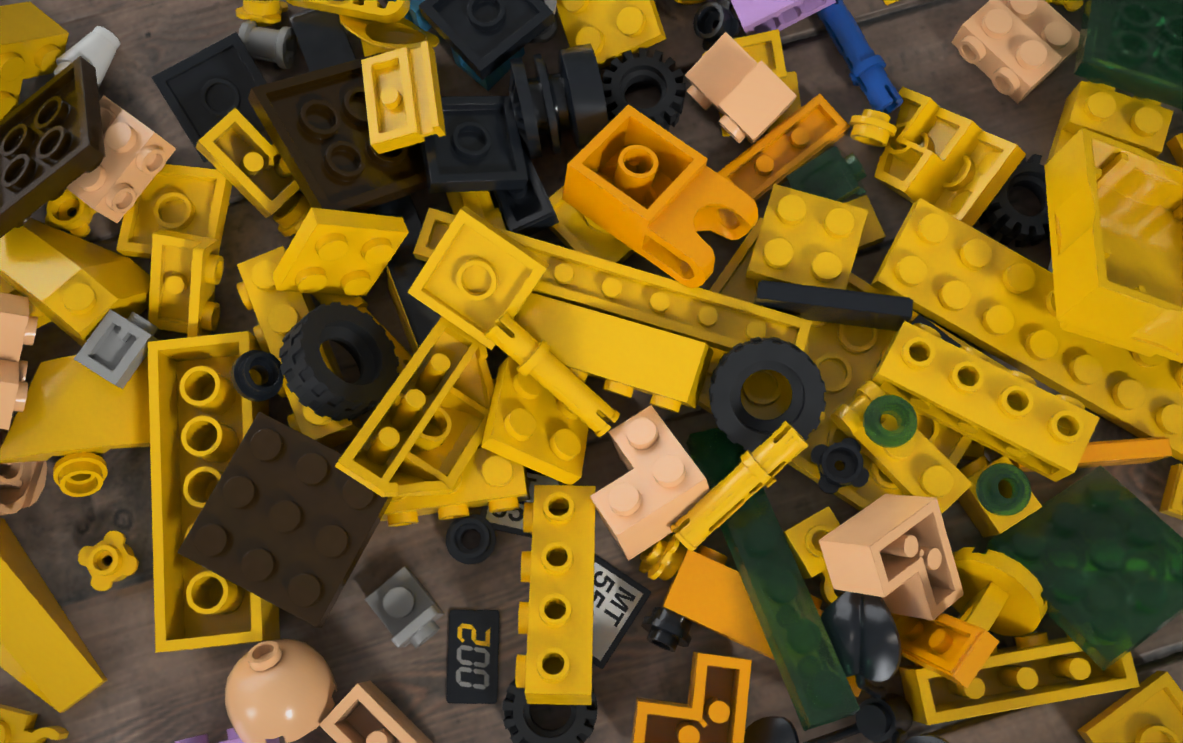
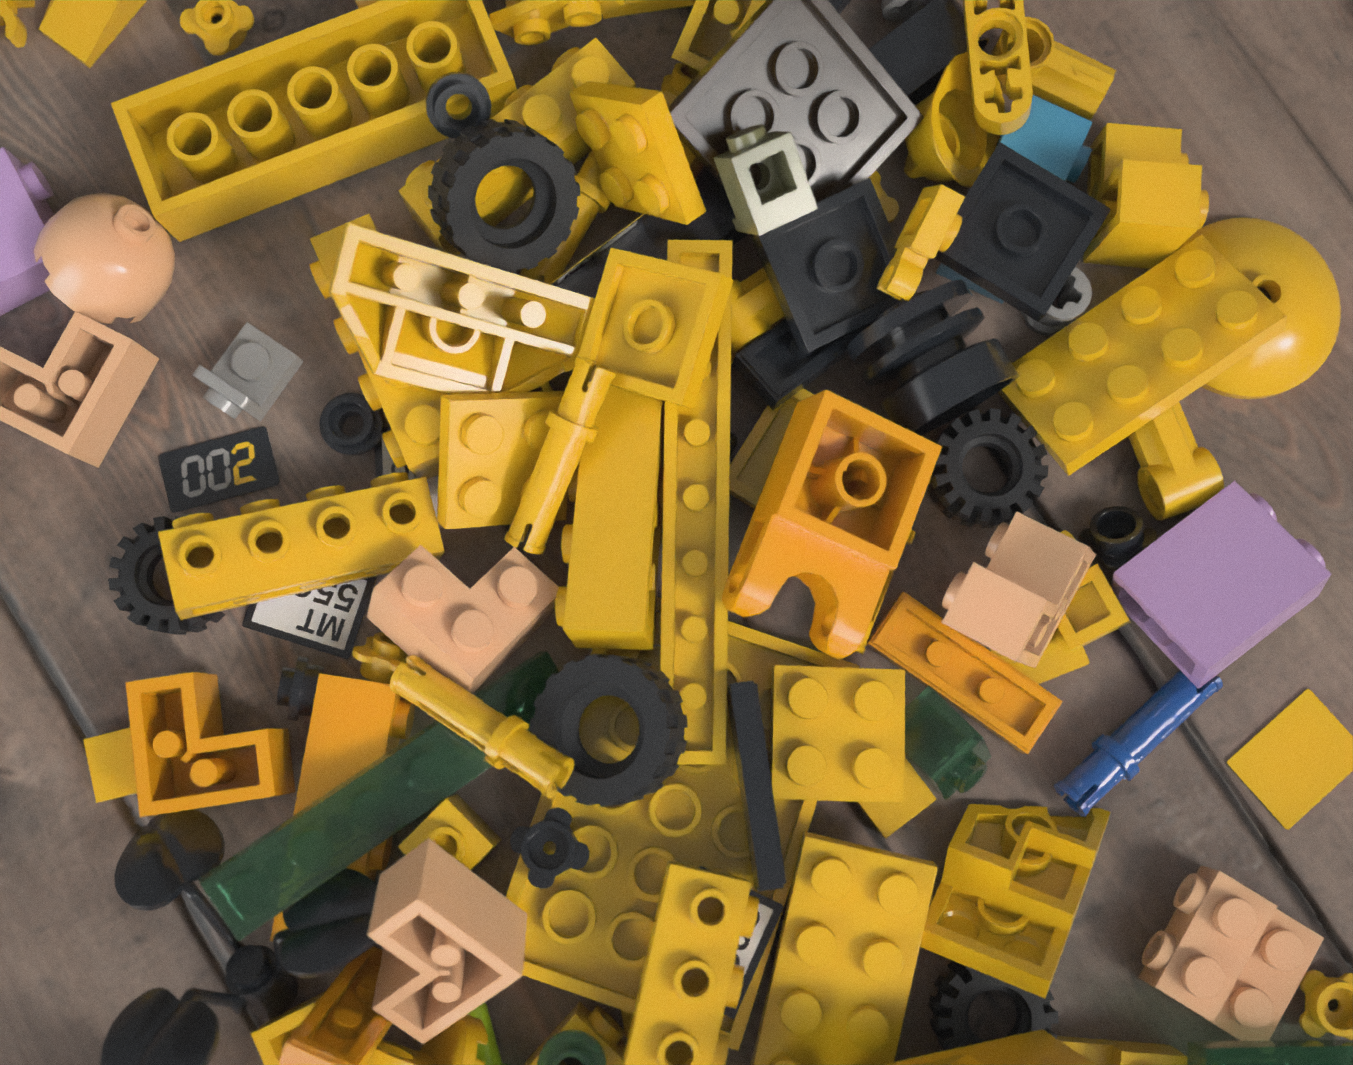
camera: 70 degrees right, 5 degrees up
(285, 521) = (284, 185): dark brown plate -> none
(397, 163) = (783, 187): none -> brick
(402, 97) = (865, 159): yellow plate -> none
(471, 70) = (928, 230): none -> yellow plate
(872, 128) = (1032, 783): yellow plate -> none
(900, 410) = (613, 918): clear green plate -> none
(913, 467) = (588, 925): yellow plate -> none

